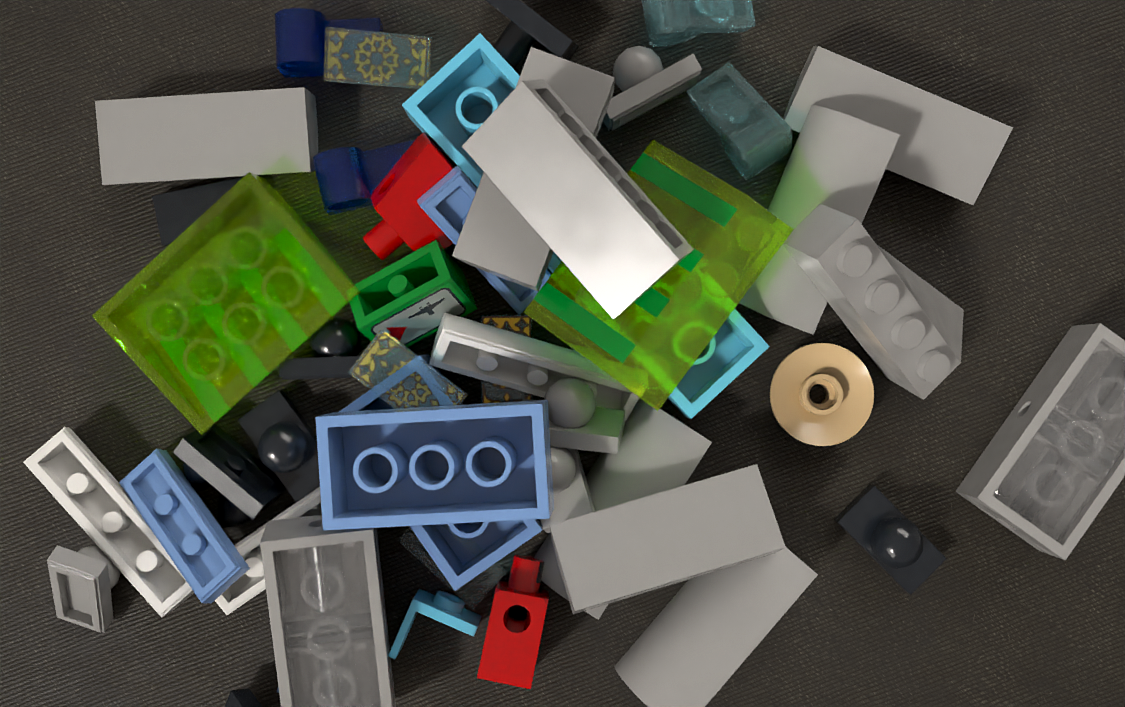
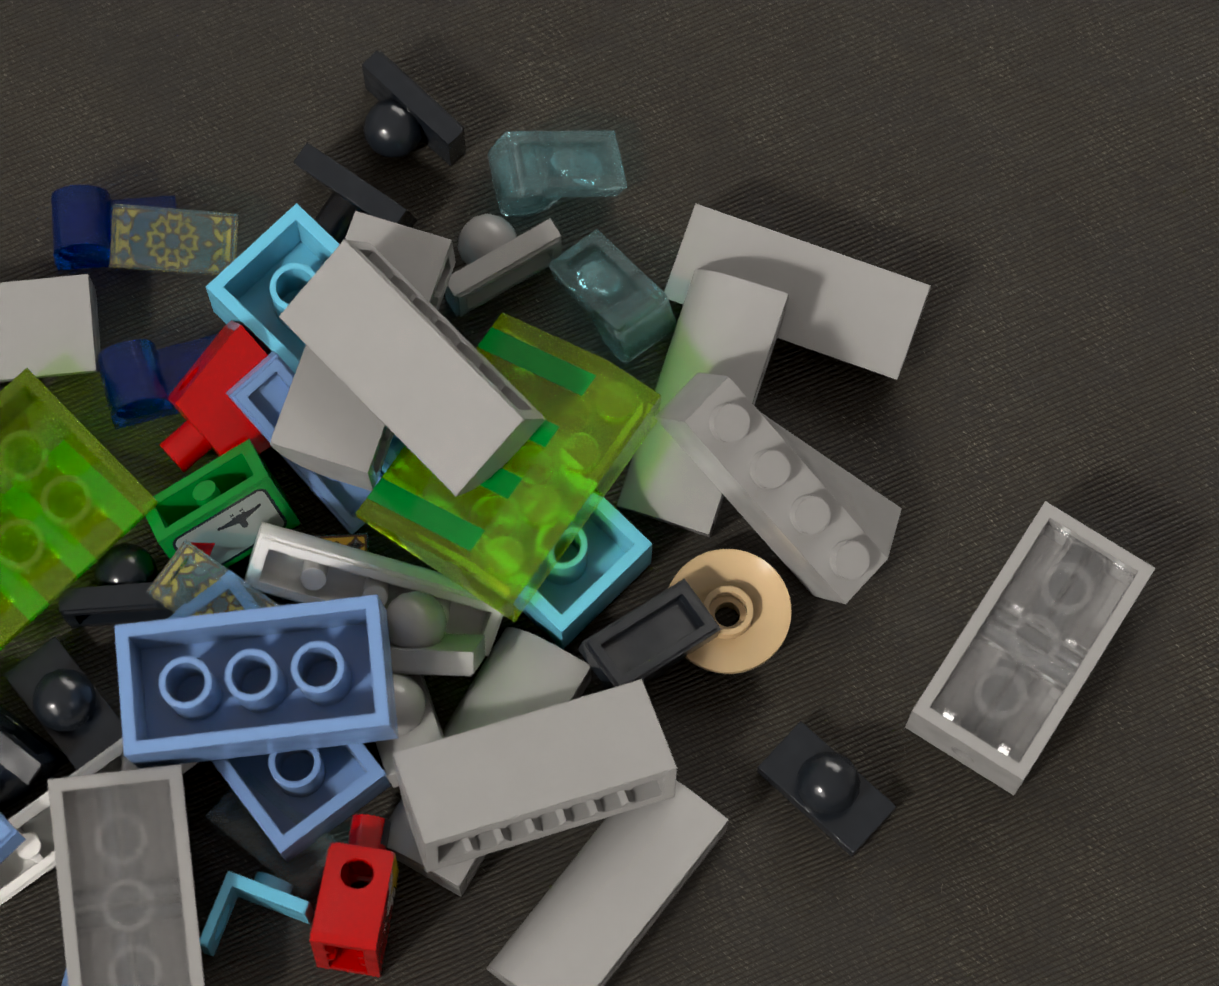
camera: 10 degrees left, 15 degrees down
(760, 421) = (650, 637): none -> black tile

